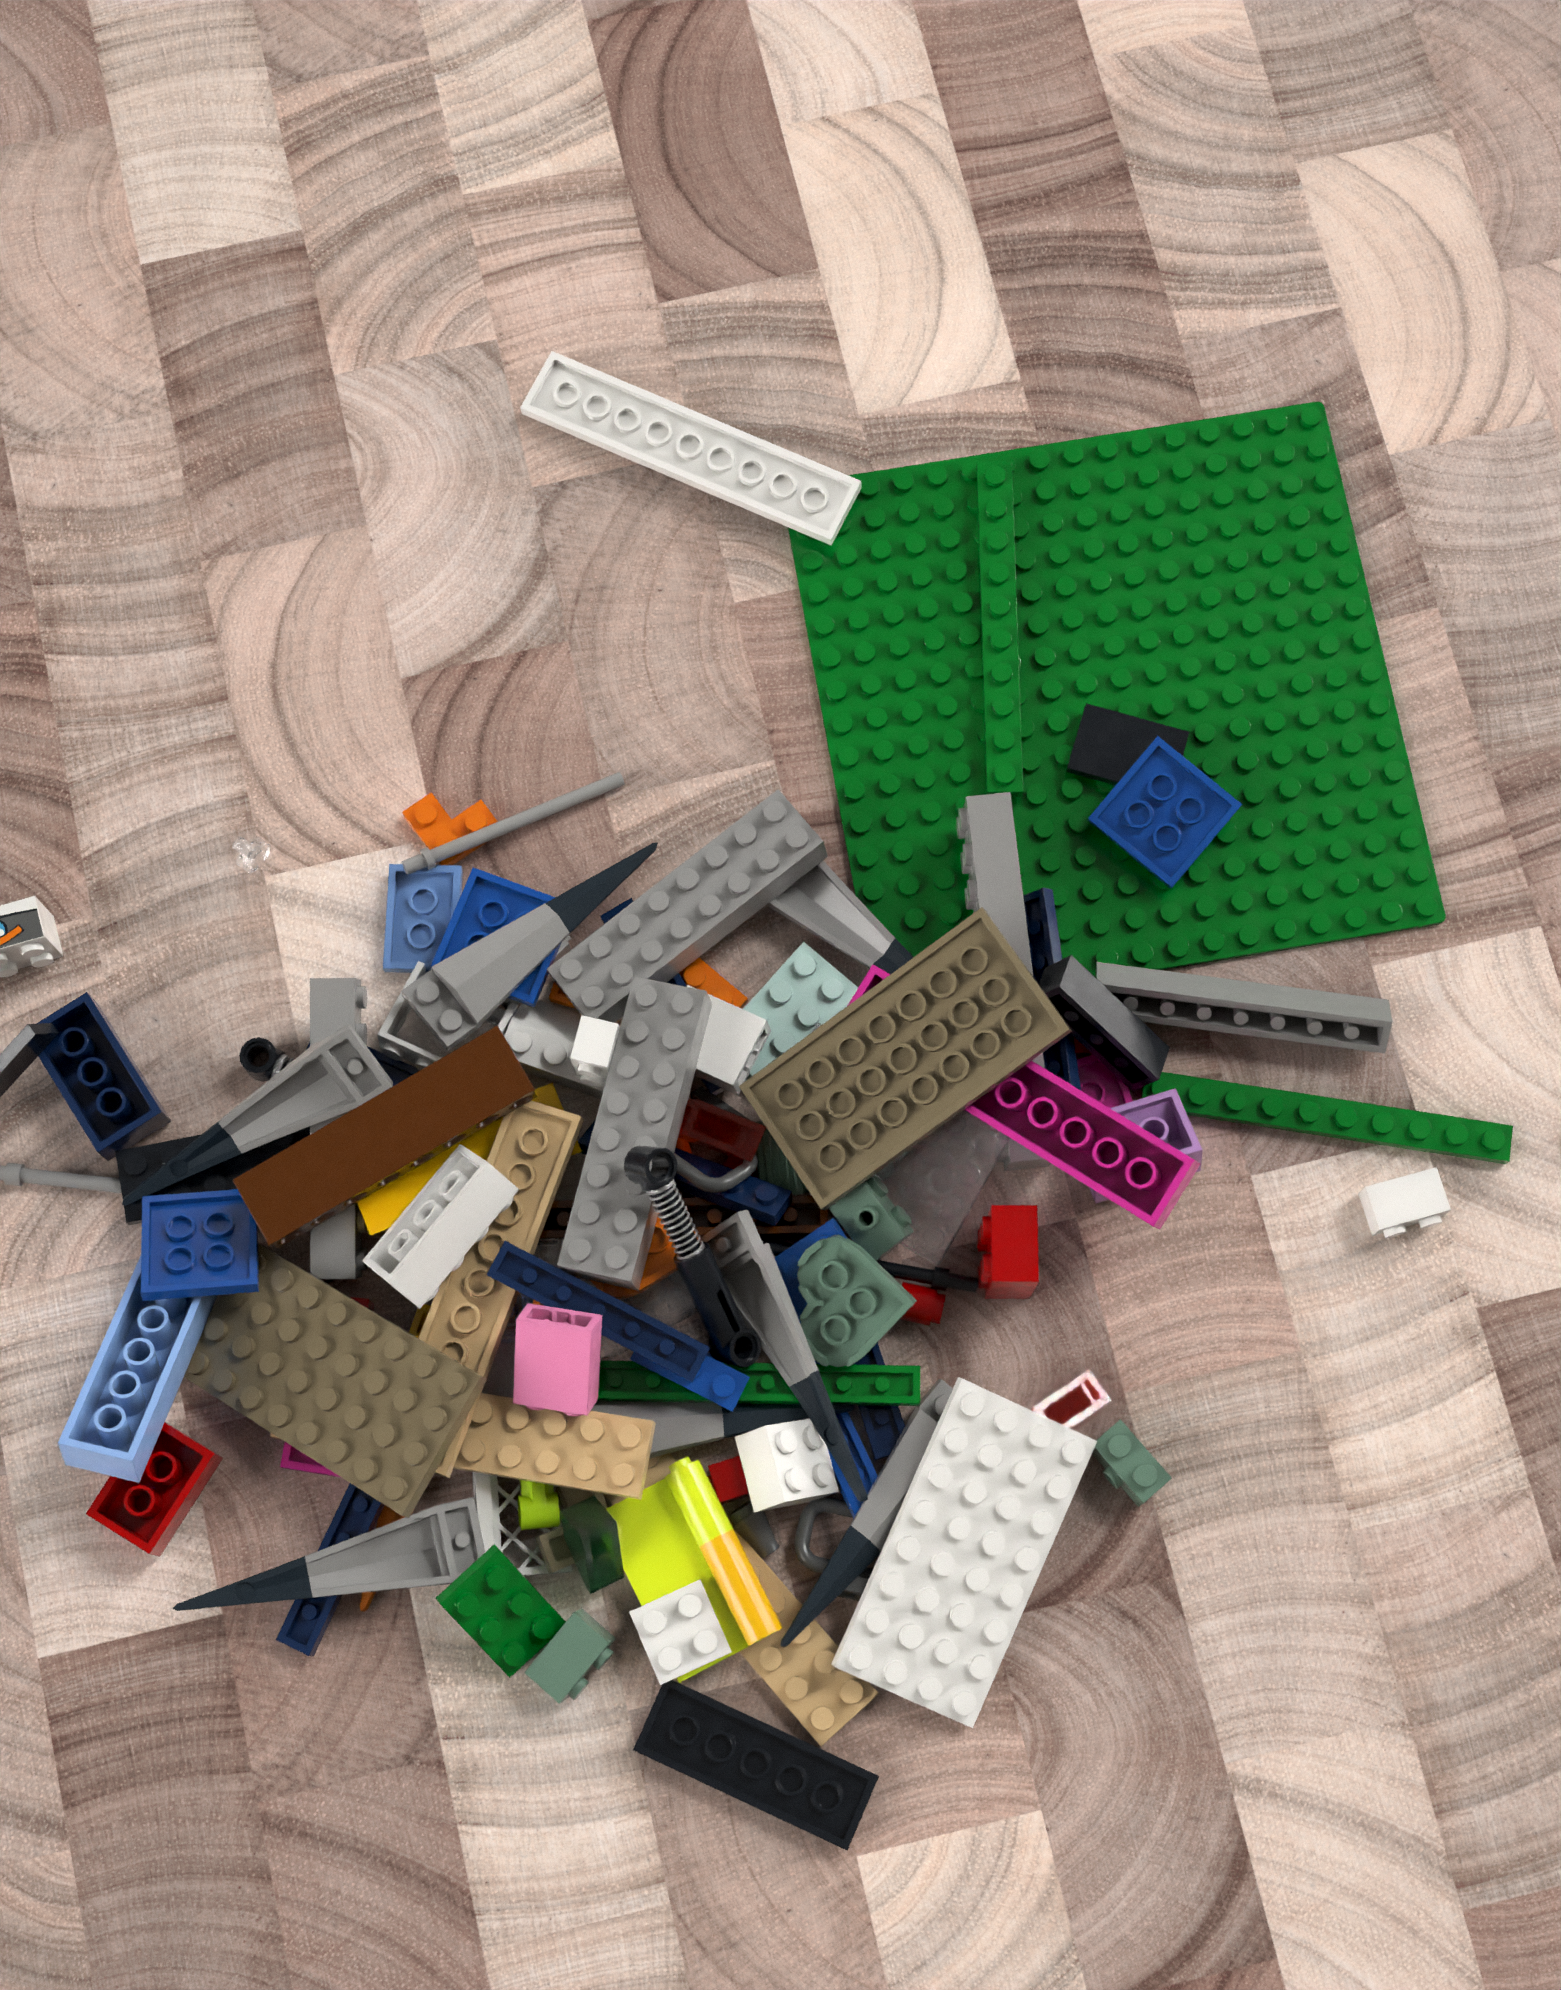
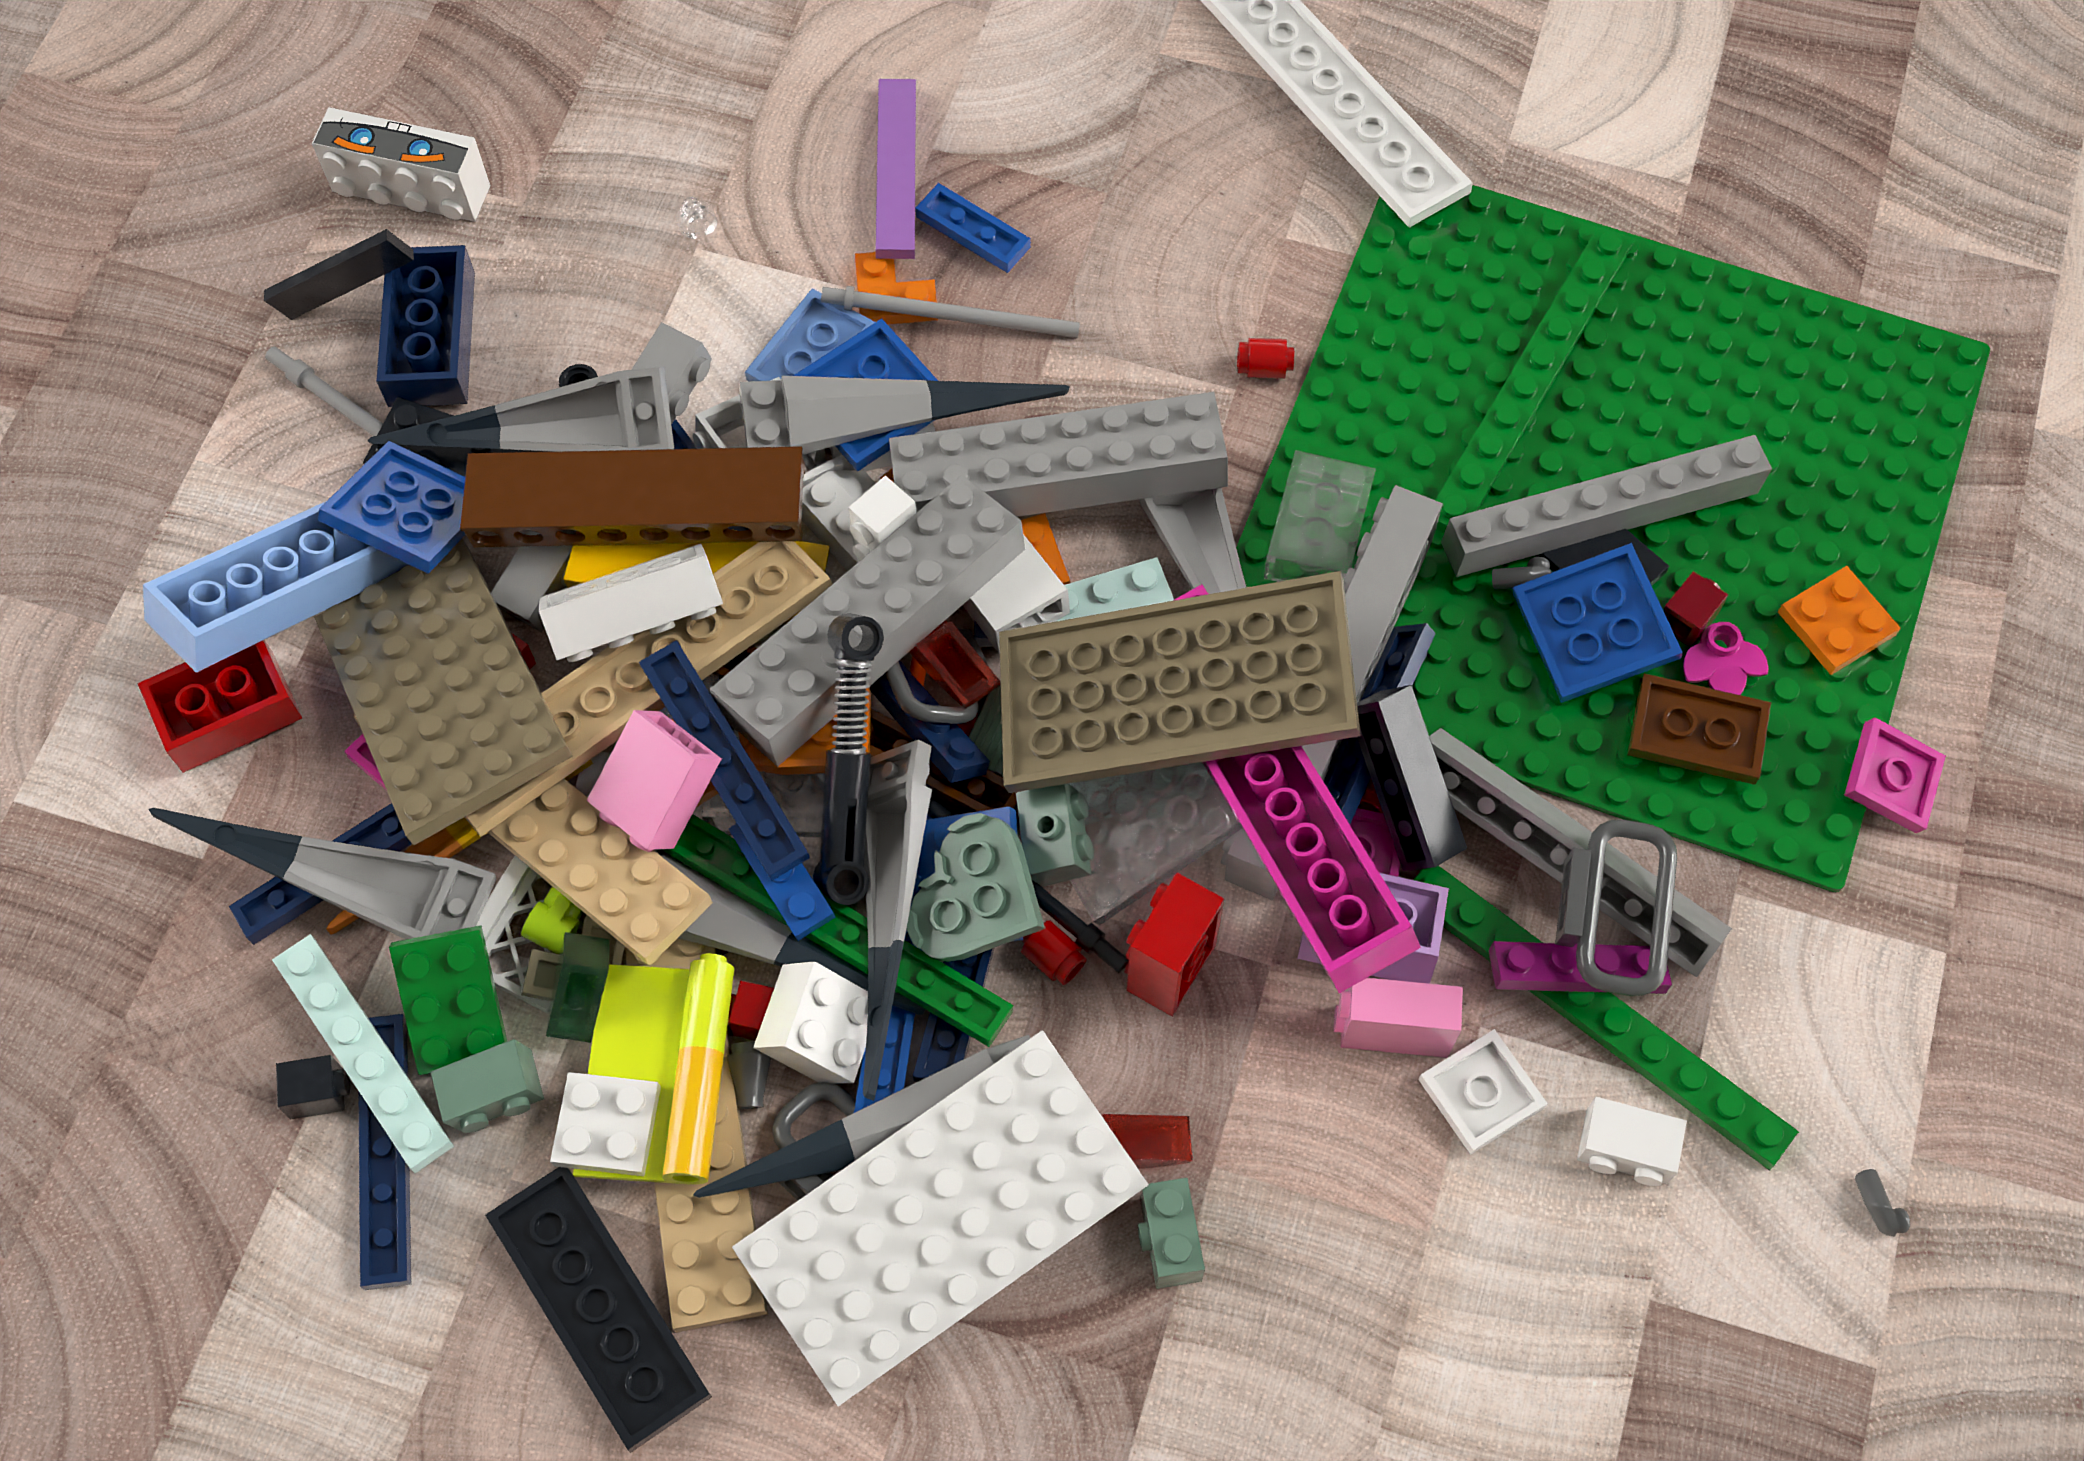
camera: 30 degrees right, 10 degrees down
(387, 717) = (896, 169): none -> medium lavender tile
(438, 1735) = (311, 1087): none -> black brick
(460, 1688) = (363, 1054): none -> light aqua plate
(482, 735) = (973, 227): none -> blue plate
(523, 1748) = (384, 1184): none -> dark blue plate
(784, 723) = (1265, 358): none -> red brick
(913, 846) = (1318, 518): none -> clear brick
(1086, 805) = (1510, 577): none -> dark grey arm
(1118, 712) = (1605, 505): none -> light grey brick
(1202, 1208) = (1400, 1017): none -> bright pink brick
(1227, 758) = (1694, 608): none -> dark red brick
(1273, 792) = (1724, 667): none -> dark pink plate
(1279, 1049) = (1581, 906): none -> dark grey bar
(1282, 854) = (1699, 729): none -> reddish brown plate
(1282, 1226) = (1482, 1091): none -> white plate
(1299, 1094) = (1555, 966): none -> magenta plate
(1334, 705) = (1839, 620): none -> orange plate
(1438, 810) = (1895, 775): none -> dark pink plate

